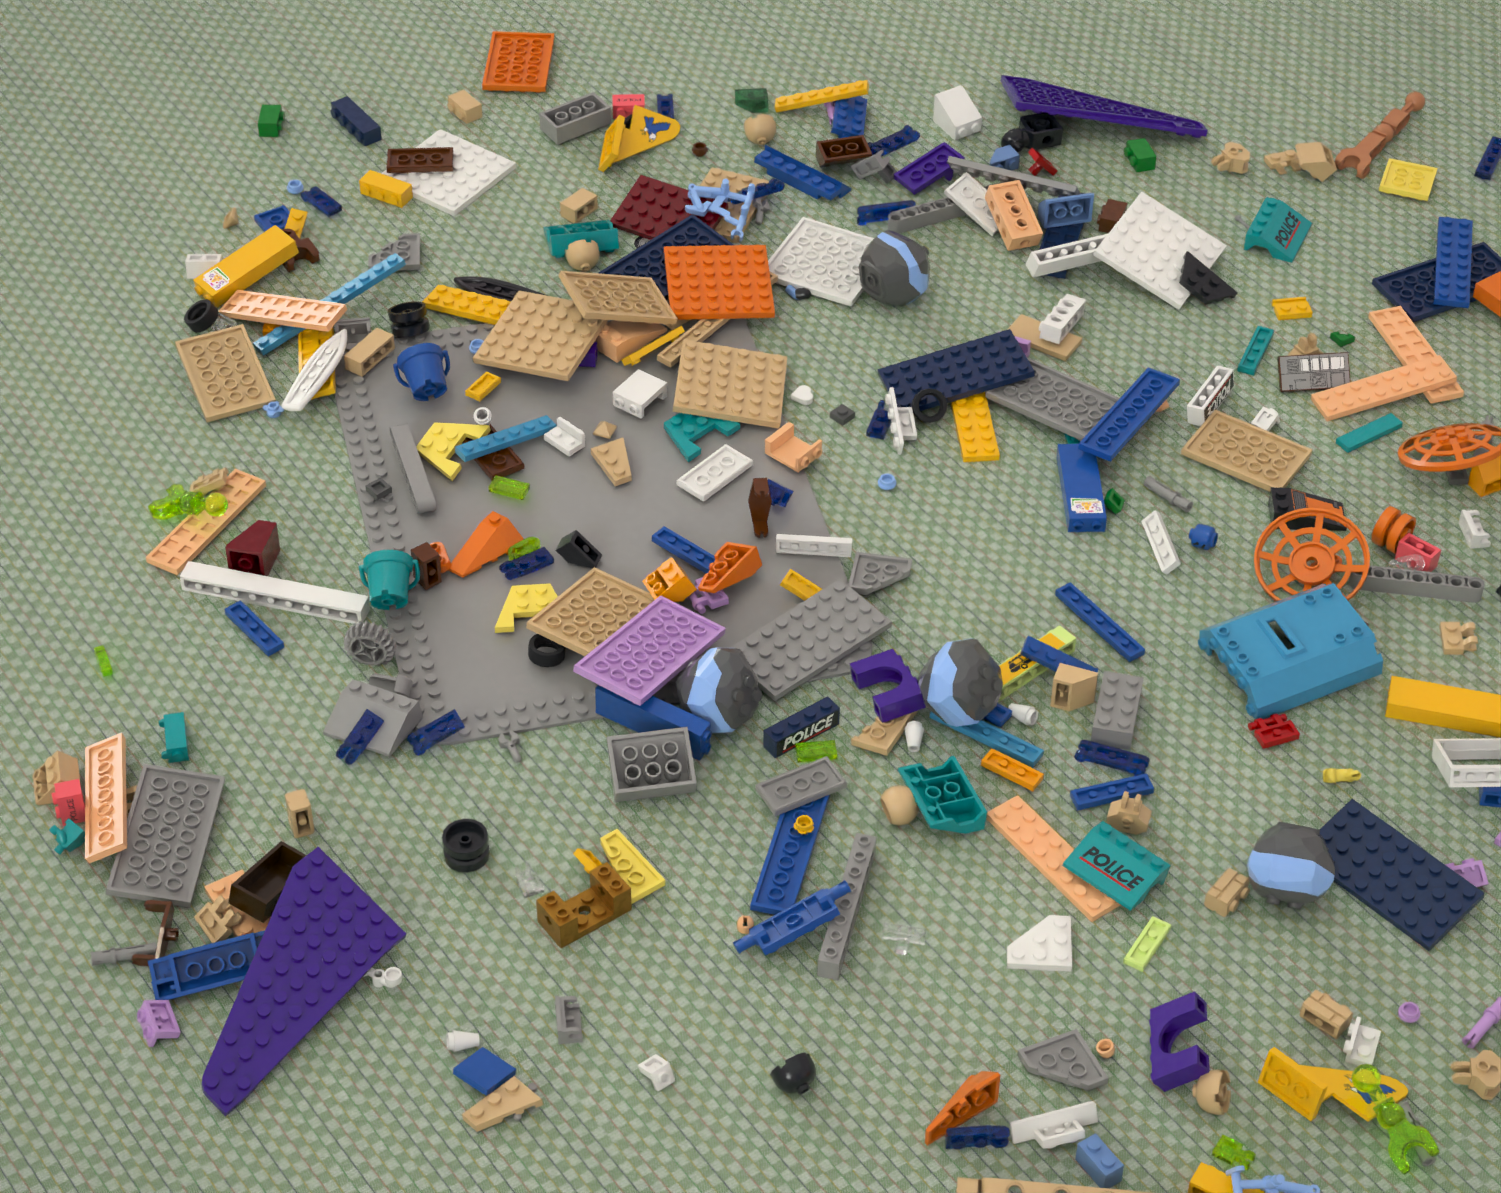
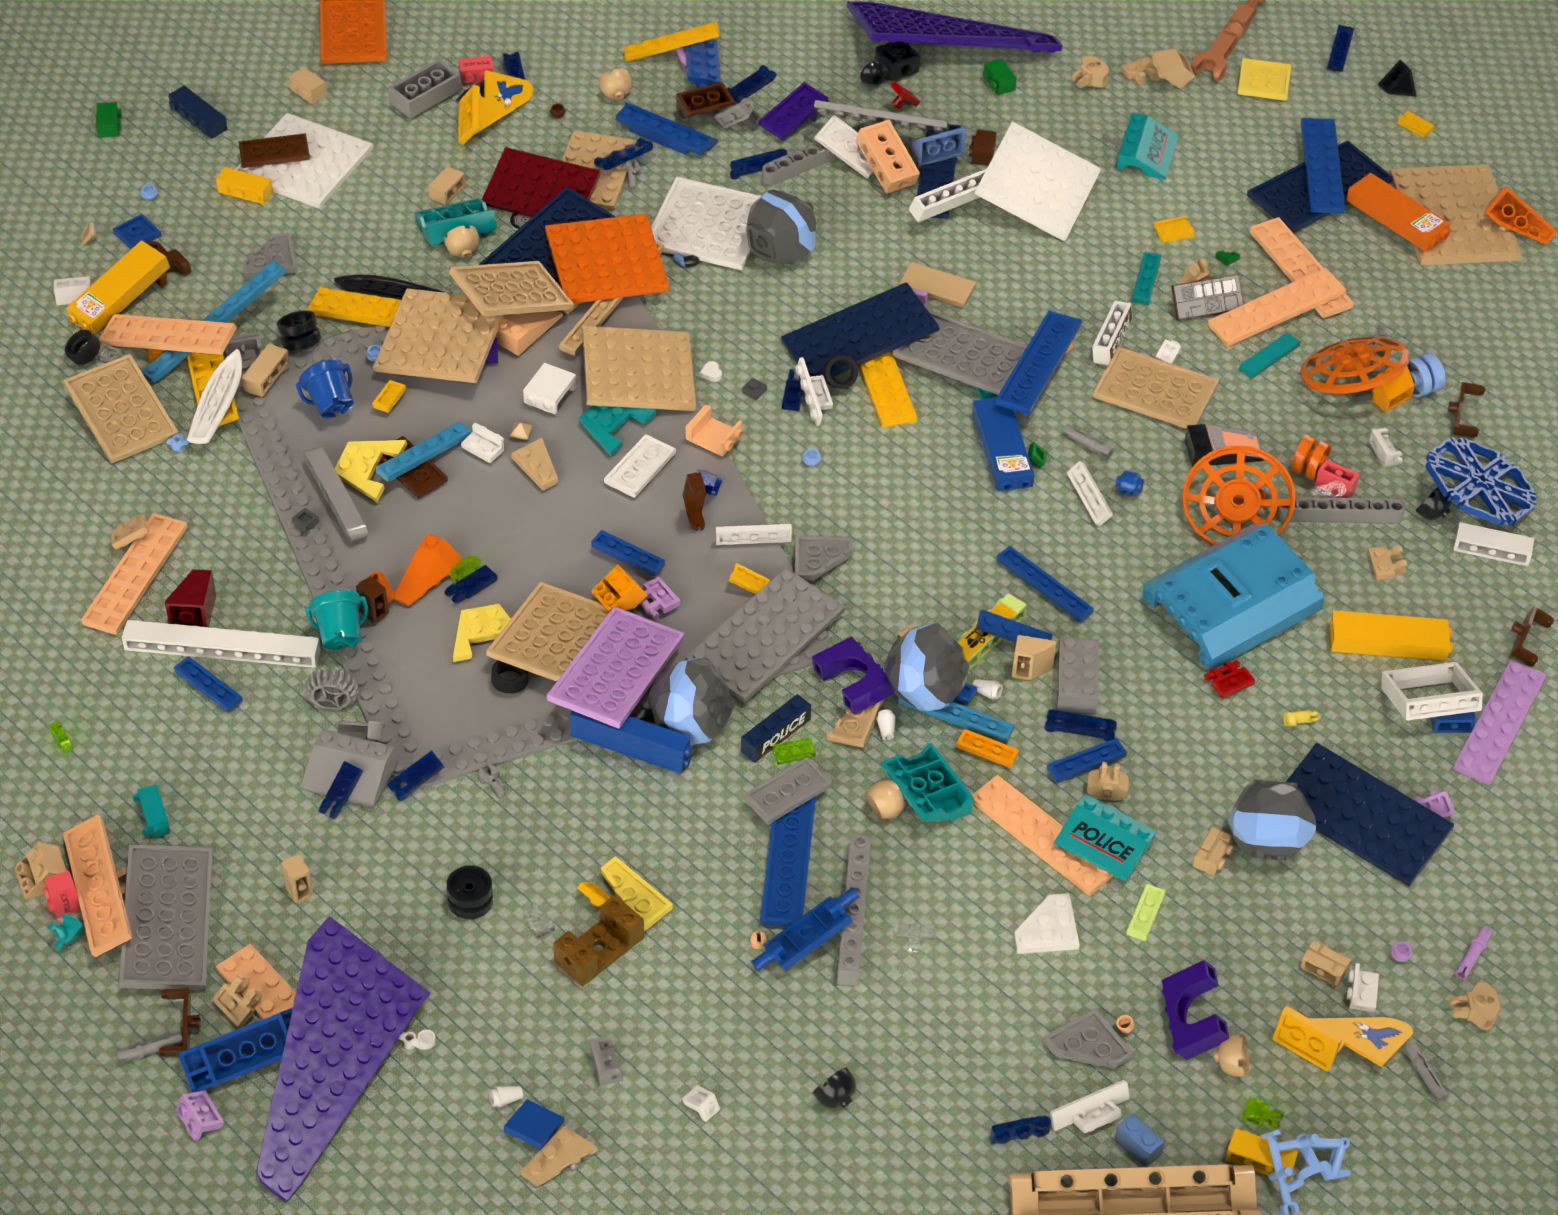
camera: 10 degrees left, 5 degrees up
(190, 503) = (105, 556): clear neon green piece -> none
(263, 883) = (281, 956): dark brown piece -> none
(296, 221) = (159, 231): yellow plate -> none
(321, 201) = (180, 205): clear blue plate -> none
(483, 416) = (398, 427): white cone -> none
(509, 487) = (437, 504): clear neon green tile -> none
(578, 550) = (520, 565): black slope -> none
(634, 358) = (568, 322): yellow plate -> none
(651, 764) = (638, 786): light grey slope -> none
(720, 195) = (592, 164): light blue piece -> none
(731, 565) = (677, 566): orange wedge -> none
(752, 99) = (601, 51): clear green slope -> none
(804, 824) = (798, 827): yellow plate -> none
(956, 113) = (810, 48): white slope -> none
(971, 1098) = (1010, 1089): orange wedge -> none
(1005, 158) = (866, 94): medium blue slope -> none
(1062, 318) = (953, 264): white brick -> none
(1203, 282) = (1085, 210): black wing -> none
(1393, 1118) = (1405, 1062): clear neon green piece -> none

